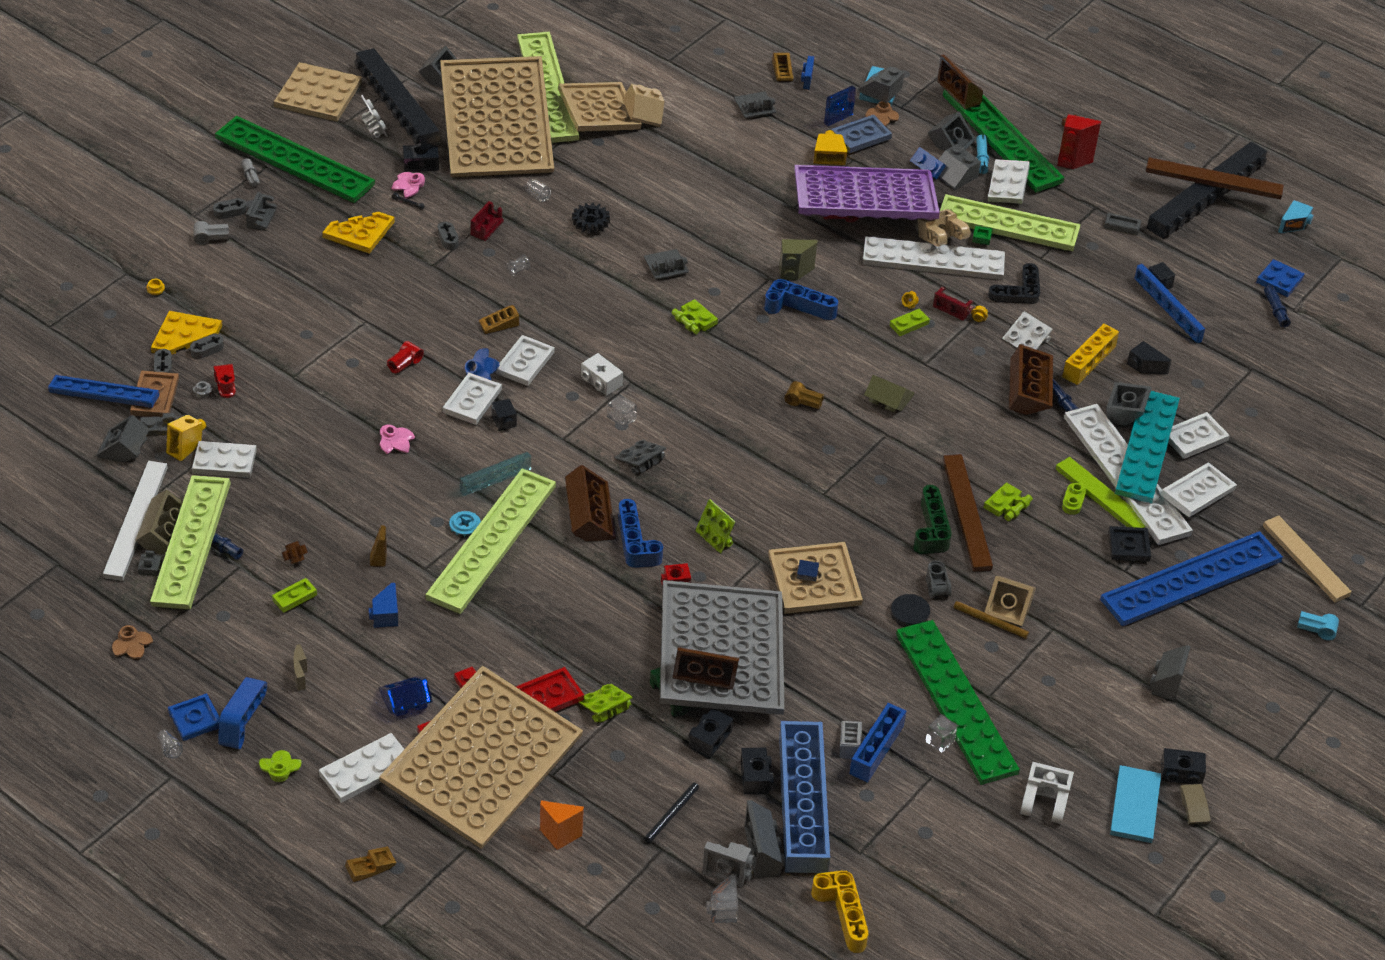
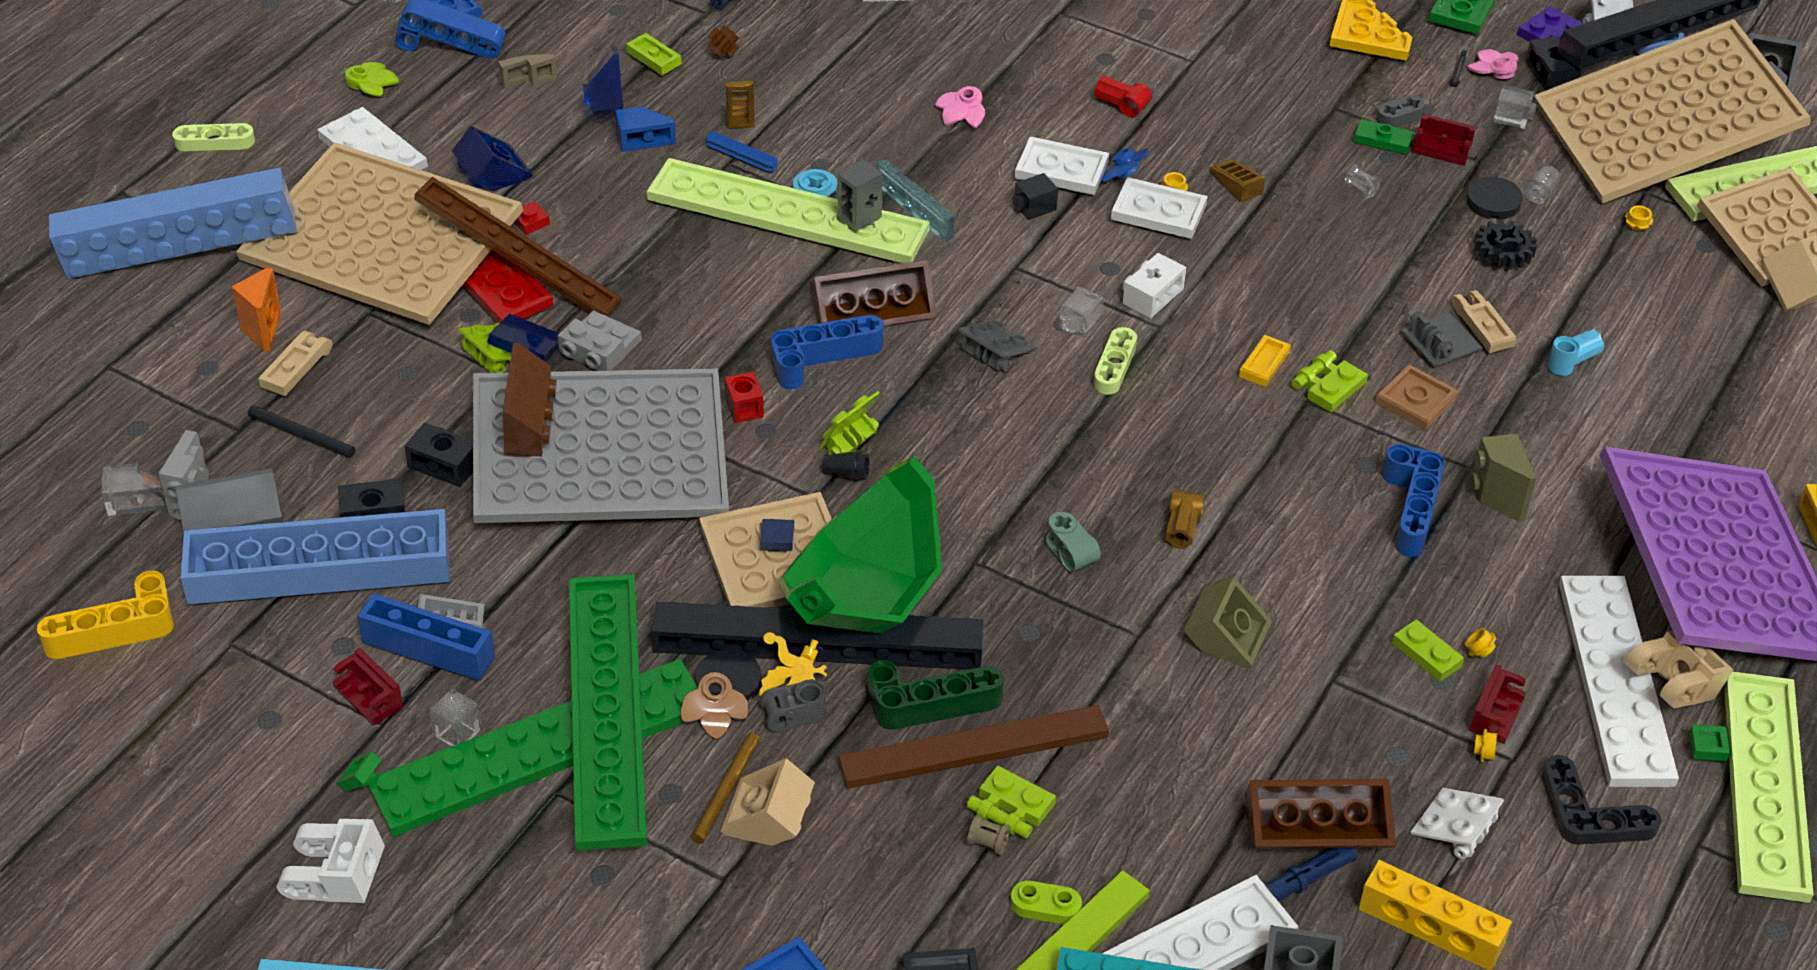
camera: 85 degrees right, 0 degrees up
(334, 872) = (195, 137): none -> yellowish green beam
(344, 613) = (604, 84): none -> clear blue slope
(374, 863) = (212, 164): pearl gold slope -> none
(380, 151) = (1546, 24): none -> dark purple plate
(419, 558) = (741, 151): none -> blue axle
(460, 184) = (1514, 107): none -> clear brick
(466, 870) = (172, 223): none -> medium blue brick
(471, 248) = (1383, 136): none -> green plate
(501, 349) = (1175, 180): none -> yellow plate
(511, 488) = (860, 195): none -> dark grey brick
(524, 674) = (516, 248): none -> reddish brown tile
(541, 214) = (1494, 197): none -> black tile
(574, 159) = (1639, 218): none -> yellow plate
(606, 813) = (294, 362): none -> tan plate
(607, 649) = (598, 341): none -> light grey plate
(609, 681) = (534, 337): none -> clear blue tile
(654, 242) = (1484, 321): none -> tan hinge
(672, 341) = (1264, 360): none -> yellow tile
(675, 409) = (1117, 370): none -> yellowish green beam
(689, 212) = (1570, 351): none -> medium azure piece
(712, 285) = (1417, 397): none -> medium nougat tile
(743, 536) = (847, 464): none -> black cone
(821, 447) = (1071, 542): none -> sand green piece
(852, 523) = (872, 557): none -> green panel
(884, 567) = (914, 643): none -> black brick
(910, 777) = (367, 687): none -> dark red hinge
(916, 582) = (797, 668): none -> yellow piece
(934, 612) = (714, 710): none -> medium nougat plate
(943, 657) = (606, 714): none -> green plate
(977, 781) = (359, 772): none -> green plate
(1033, 512) = (988, 834): none -> dark tan bush

